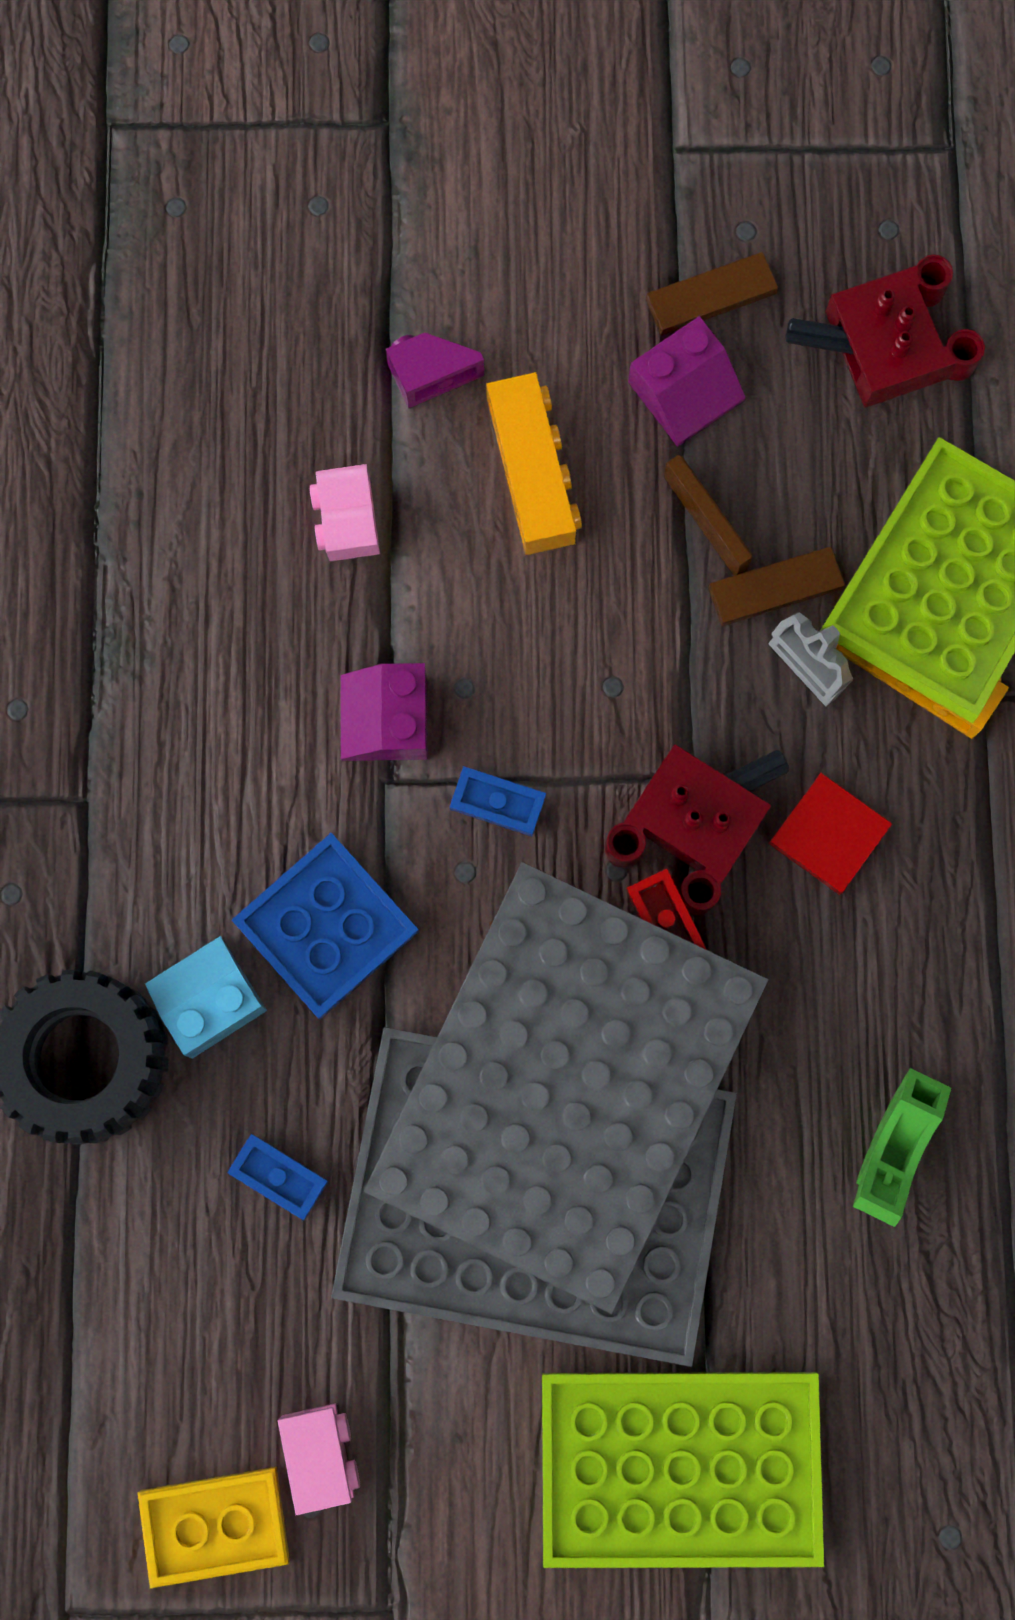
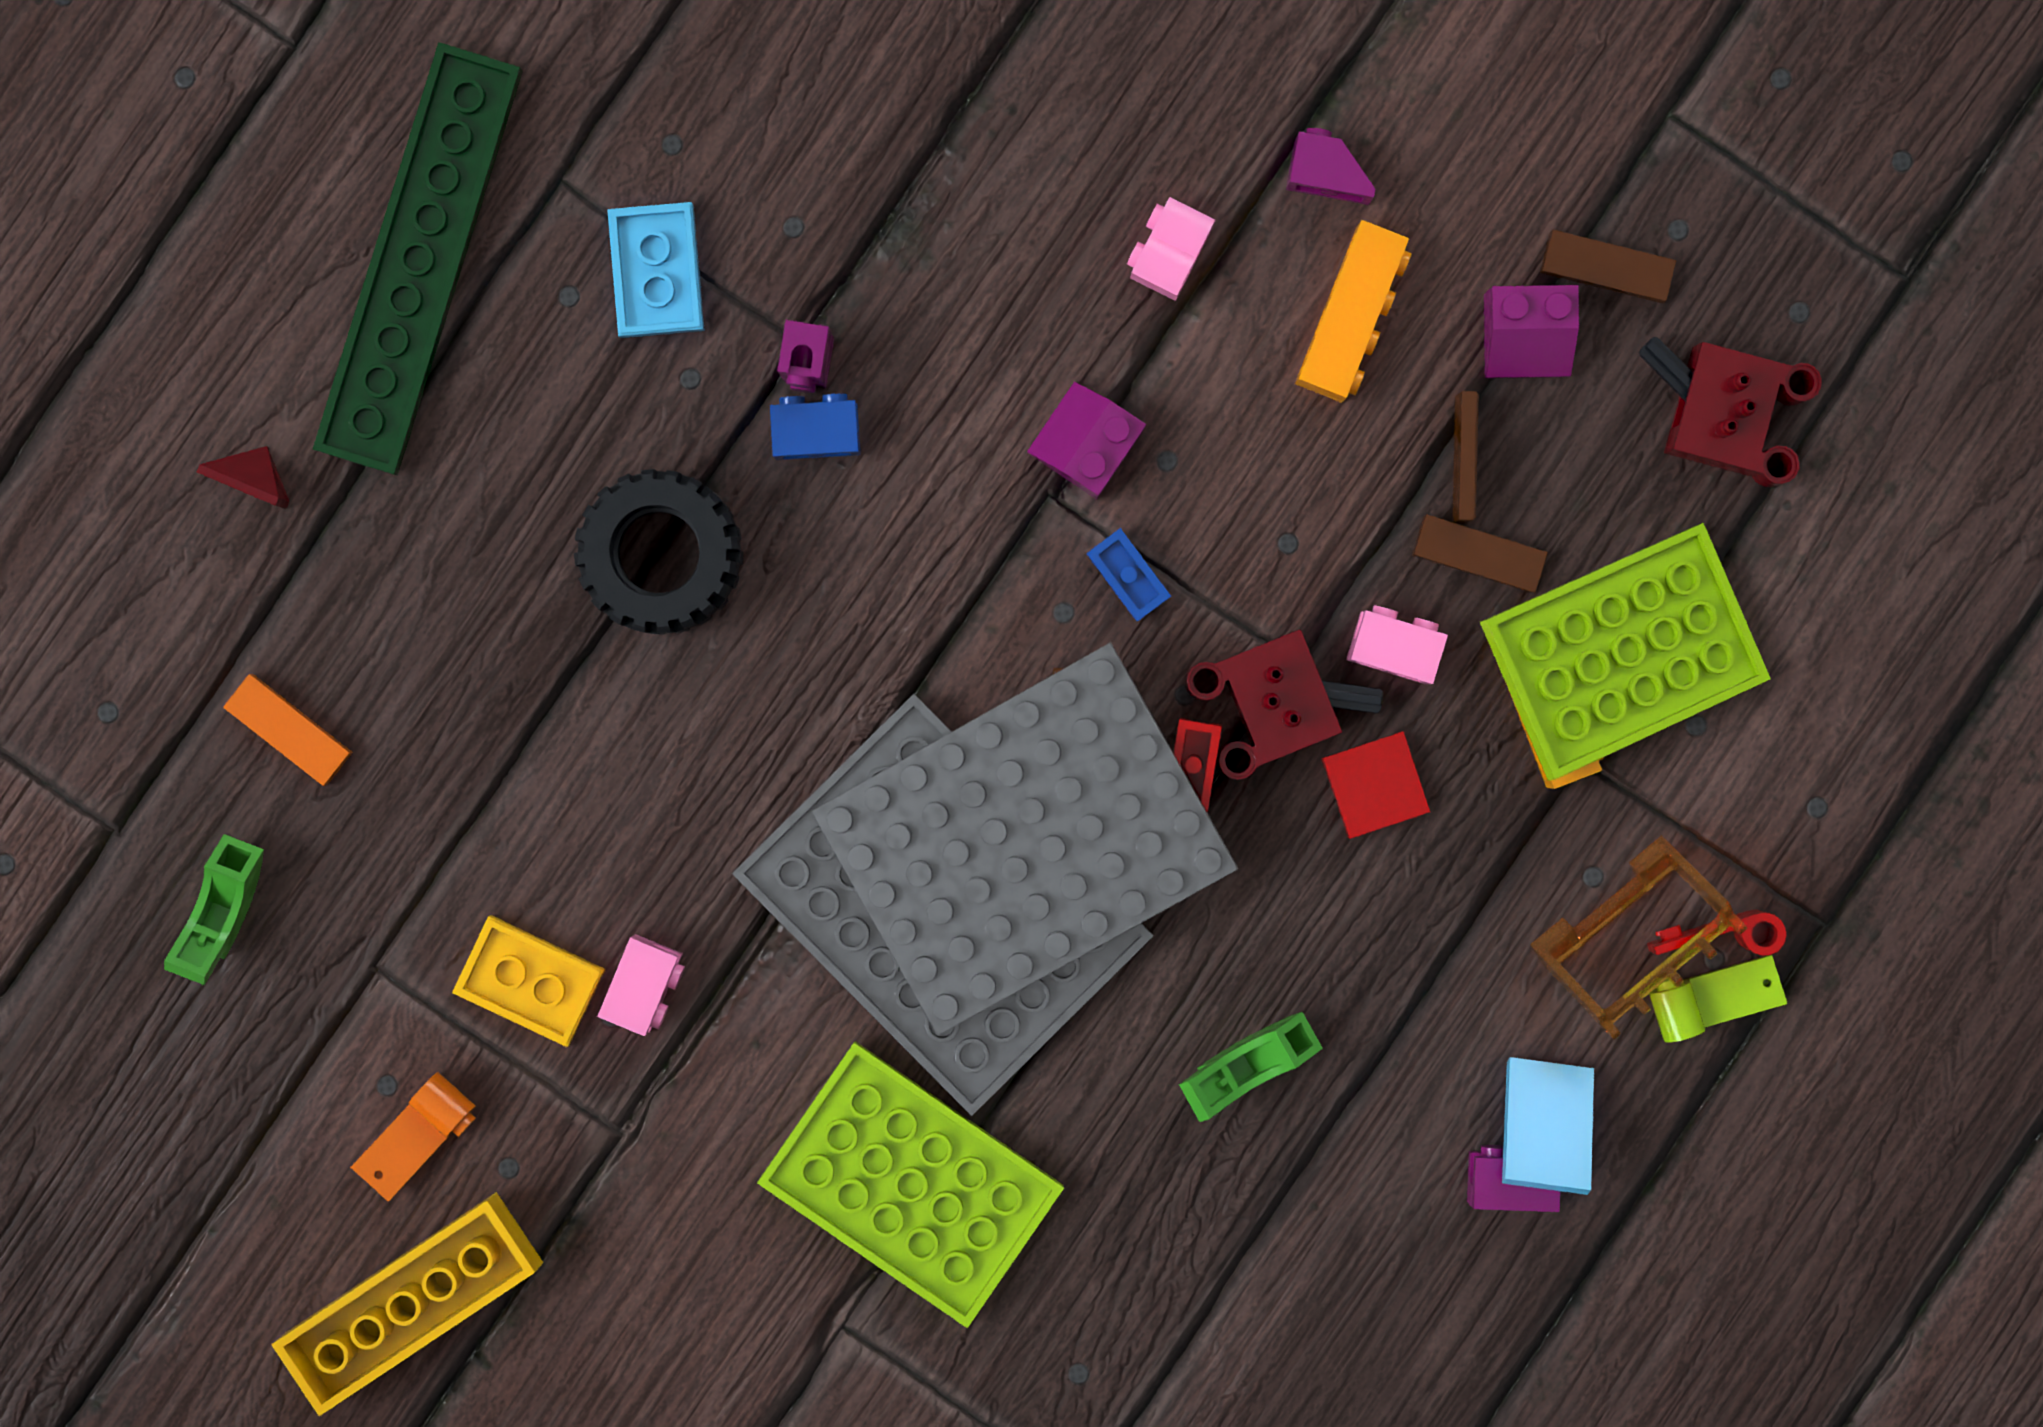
camera: 35 degrees right, 10 degrees up
(95, 802) = (805, 356): none -> magenta brick
(145, 860) = (815, 428): none -> blue brick
(204, 998) = (789, 570): medium azure slope -> none
(278, 1177) = (752, 752): blue plate -> none
(325, 926) = (922, 580): blue plate -> none
(764, 705) = (1397, 646): none -> bright pink brick
(812, 656) = (1464, 635): light grey plate -> none

